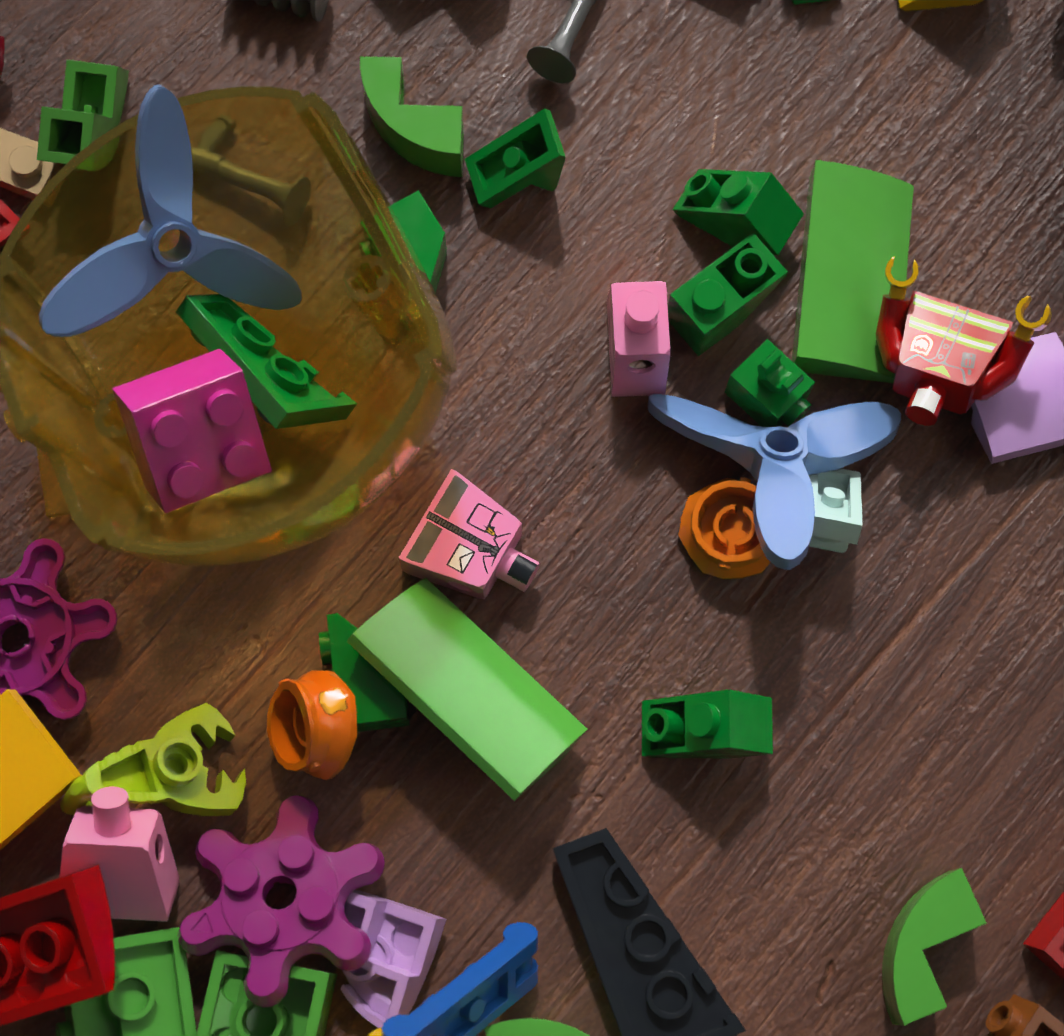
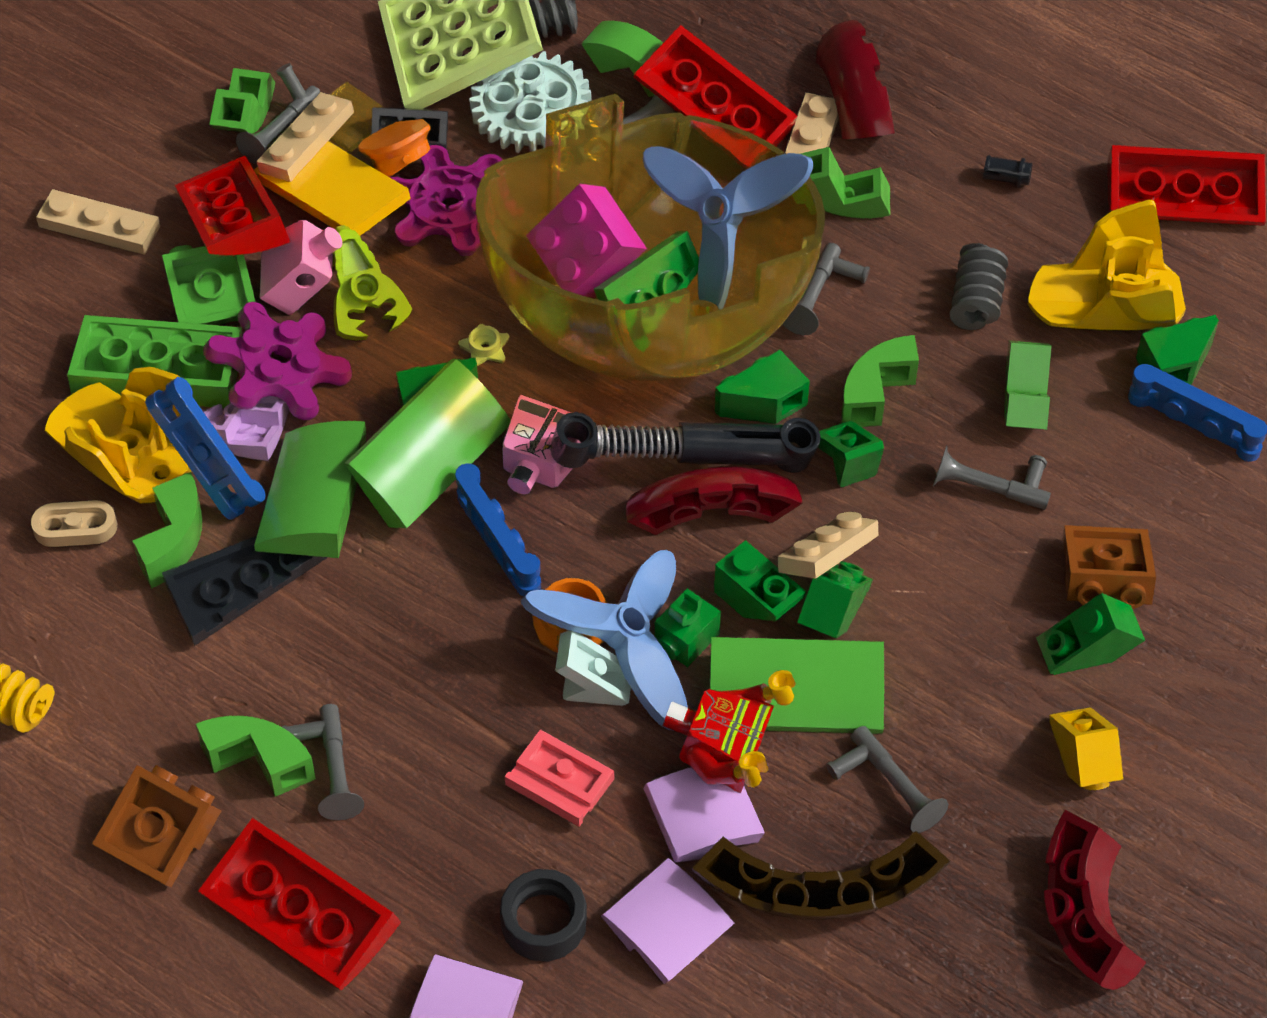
camera: 85 degrees right, 20 degrees down
(267, 595) = (489, 336): none -> yellowish green plate
(313, 724) = (397, 354): orange hat -> none
(502, 353) = (689, 443): none -> black piece
(518, 856) = (311, 490): none -> bright green slope
(571, 324) = (689, 493): none -> dark red brick
(581, 620) = (505, 544): none -> blue plate
(638, 332) = (710, 529): bright pink torso -> none
(681, 201) = (828, 545): none -> tan plate
(707, 726) = (413, 602): green slope -> none
(885, 847) = (340, 802): none -> dark grey piece
(974, 561) = (559, 777): none -> coral plate
(1035, 152) = (925, 811): none -> dark grey piece

